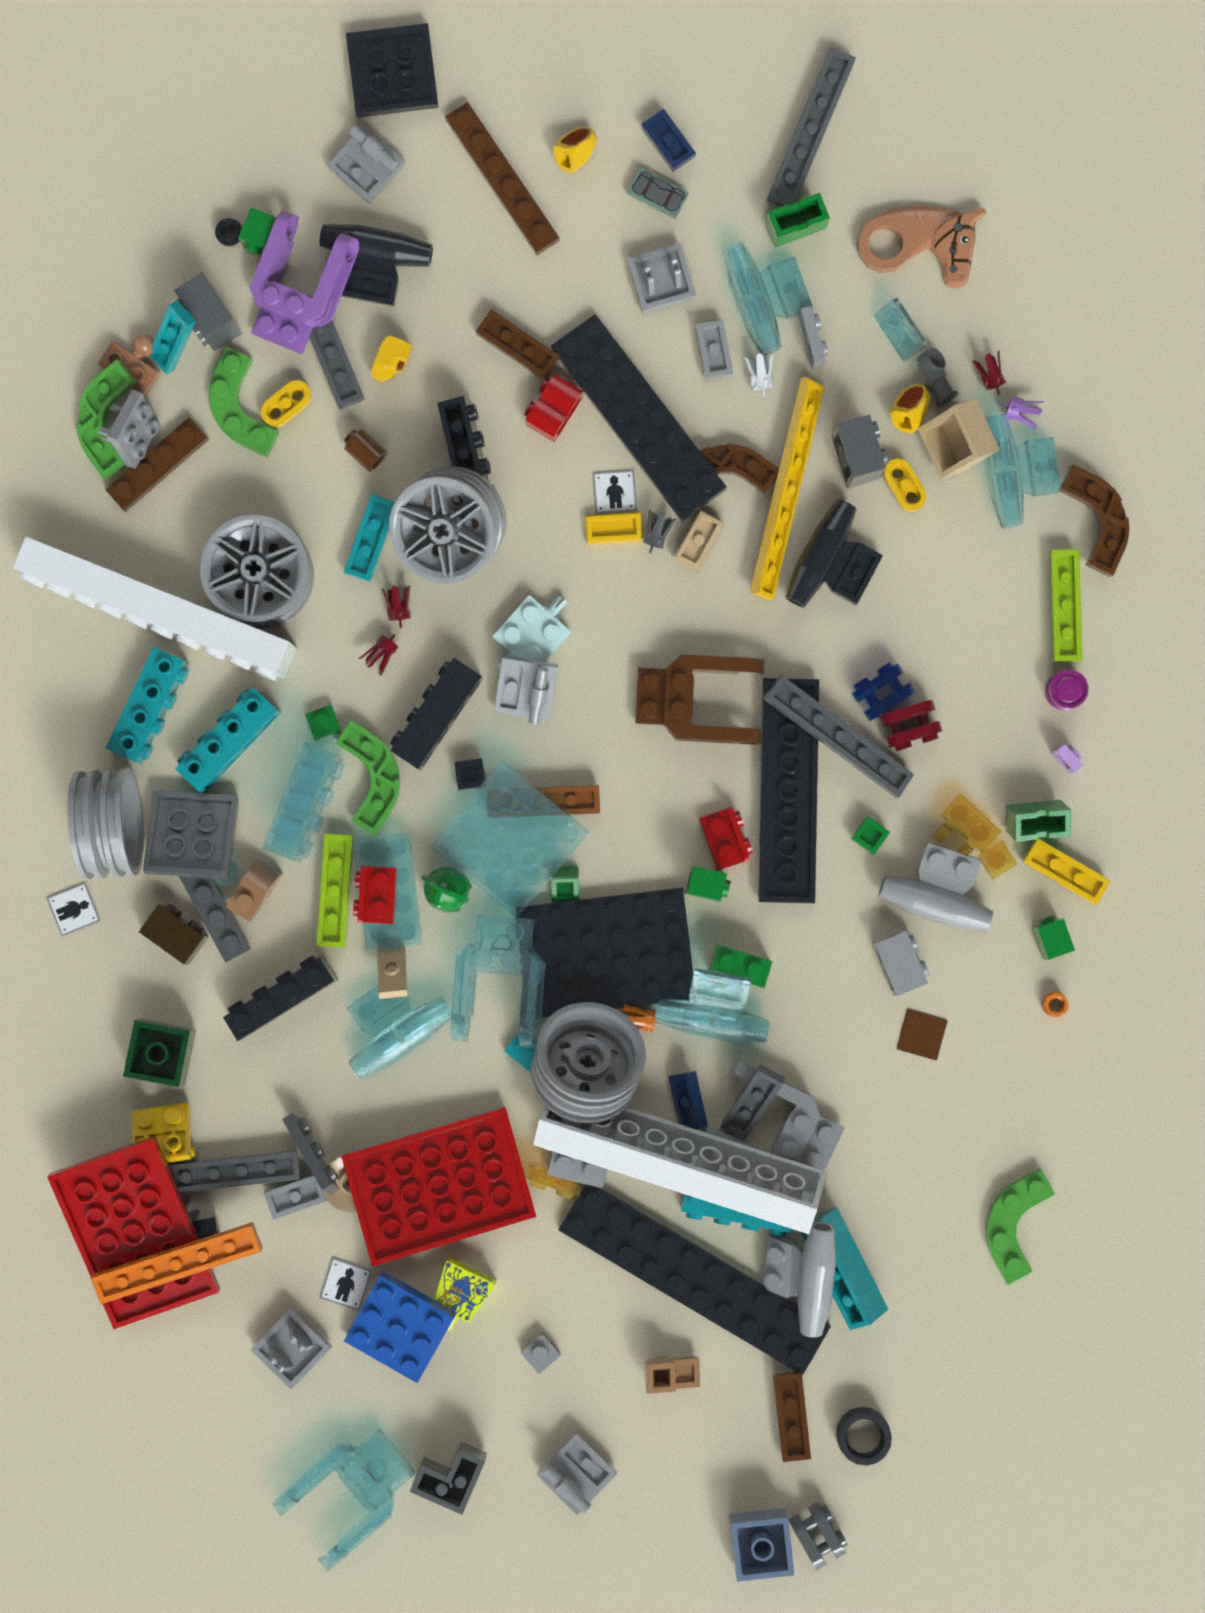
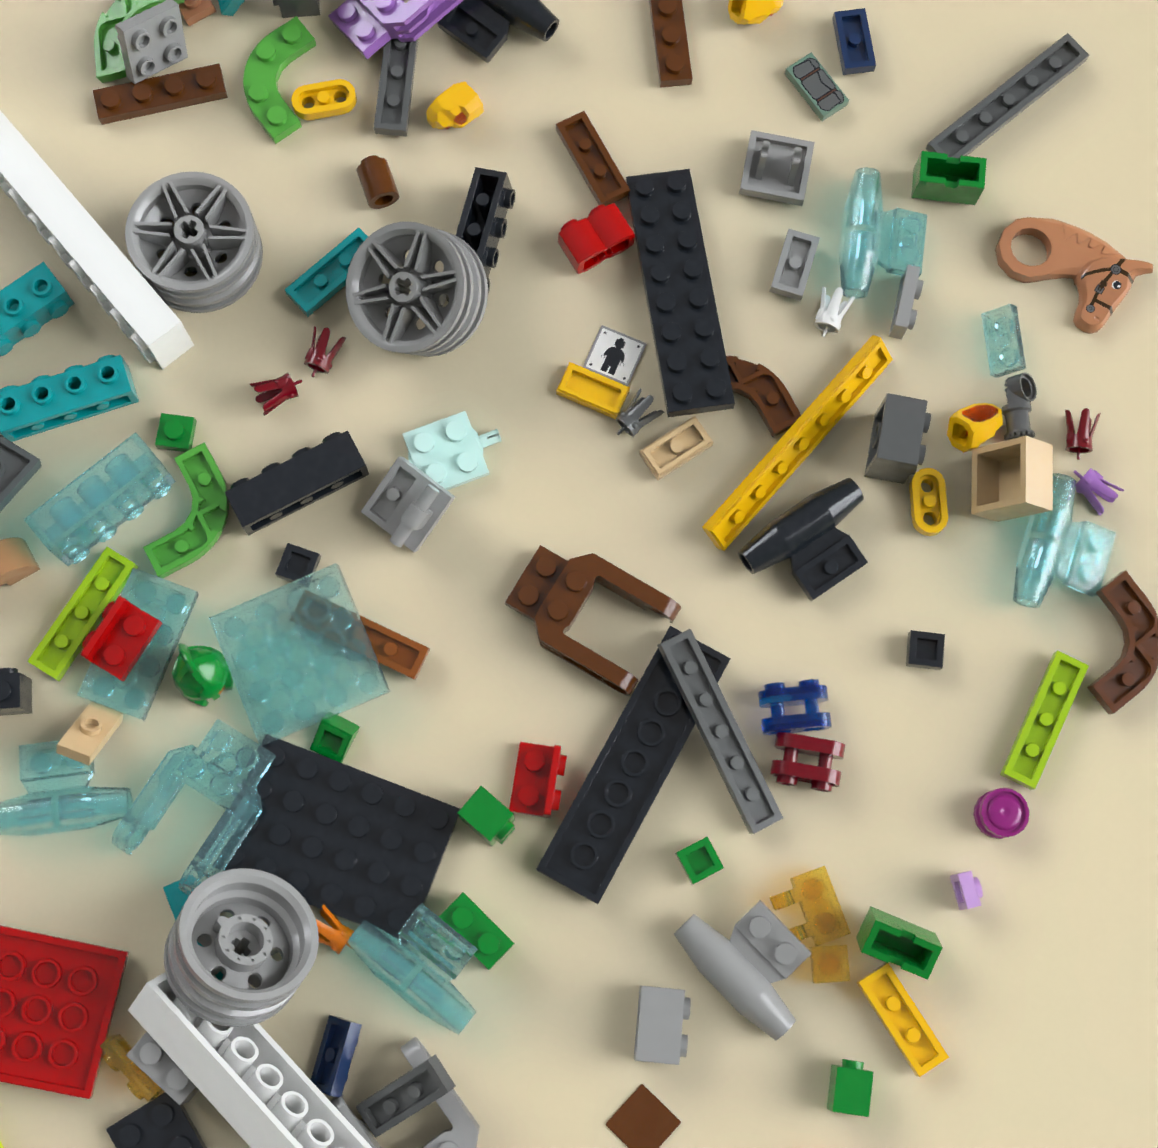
camera: 25 degrees right, 10 degrees down
(955, 598) = (925, 650): none -> black plate

